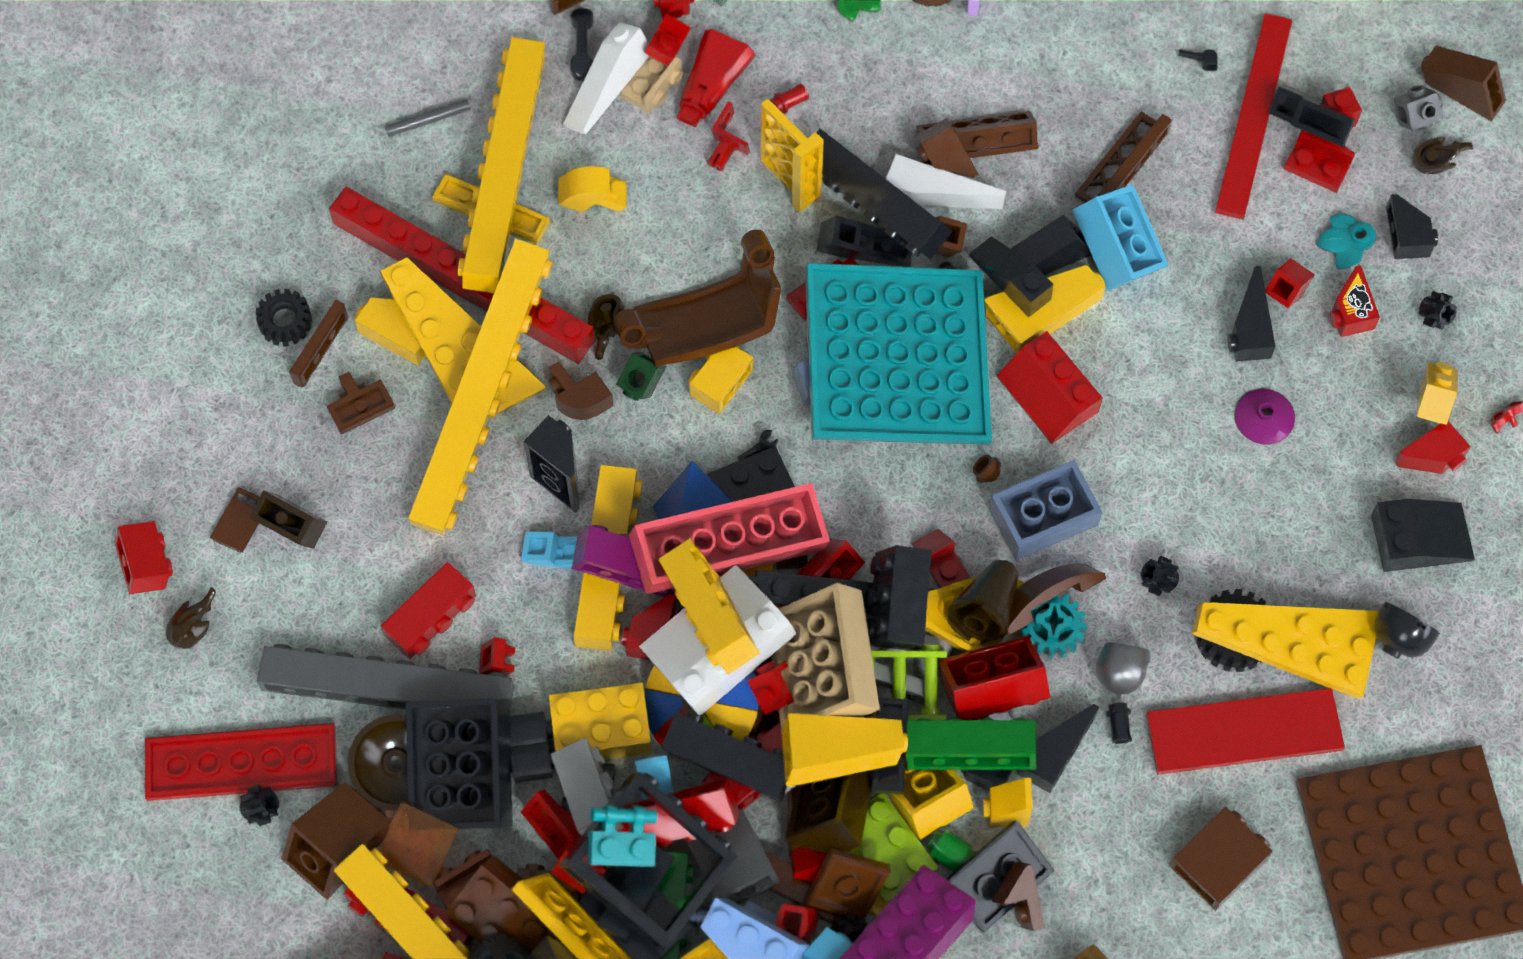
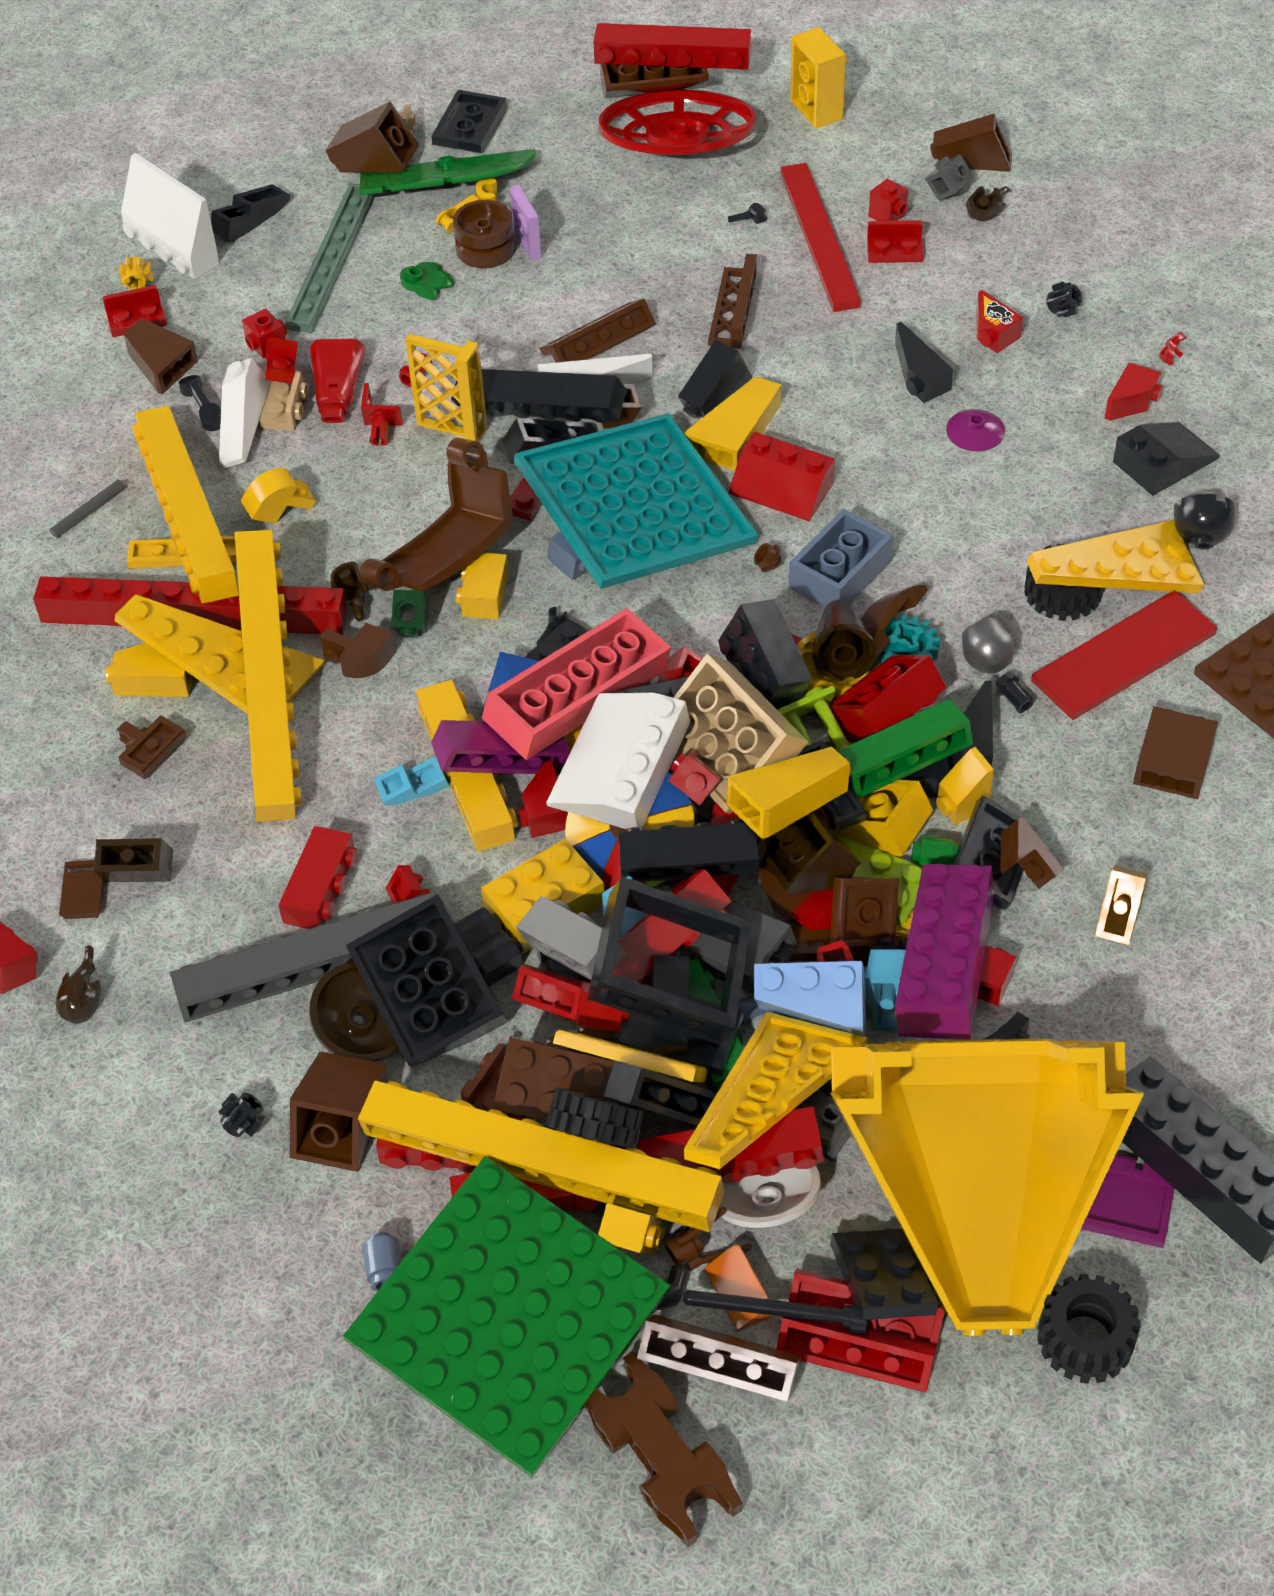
camera: 25 degrees left, 15 degrees down
(240, 760) = (194, 1090): red tile -> none
(283, 333) = (30, 695): black tyre -> none
(319, 344) = (82, 713): reddish brown tile -> none
(417, 844) = (427, 1065): clear orange hinge -> none
(553, 460) = (374, 699): black slope -> none
(622, 848) = (639, 948): teal plate -> none
(709, 607) = (601, 719): yellow wedge -> none
(945, 149) = (578, 342): reddish brown slope -> none
(1013, 275) = (701, 401): black slope -> none
(1120, 237) = (769, 347): medium azure slope -> none
(1160, 575) = (972, 569): black gear -> none
(1289, 283) = (932, 326): red brick -> none
(1311, 115) = (870, 206): black slope -> none
(1343, 240) = (952, 284): teal plate -> none
(1409, 229) = (1000, 257): black slope -> none
(1437, 392) = (1108, 345): yellow brick -> none

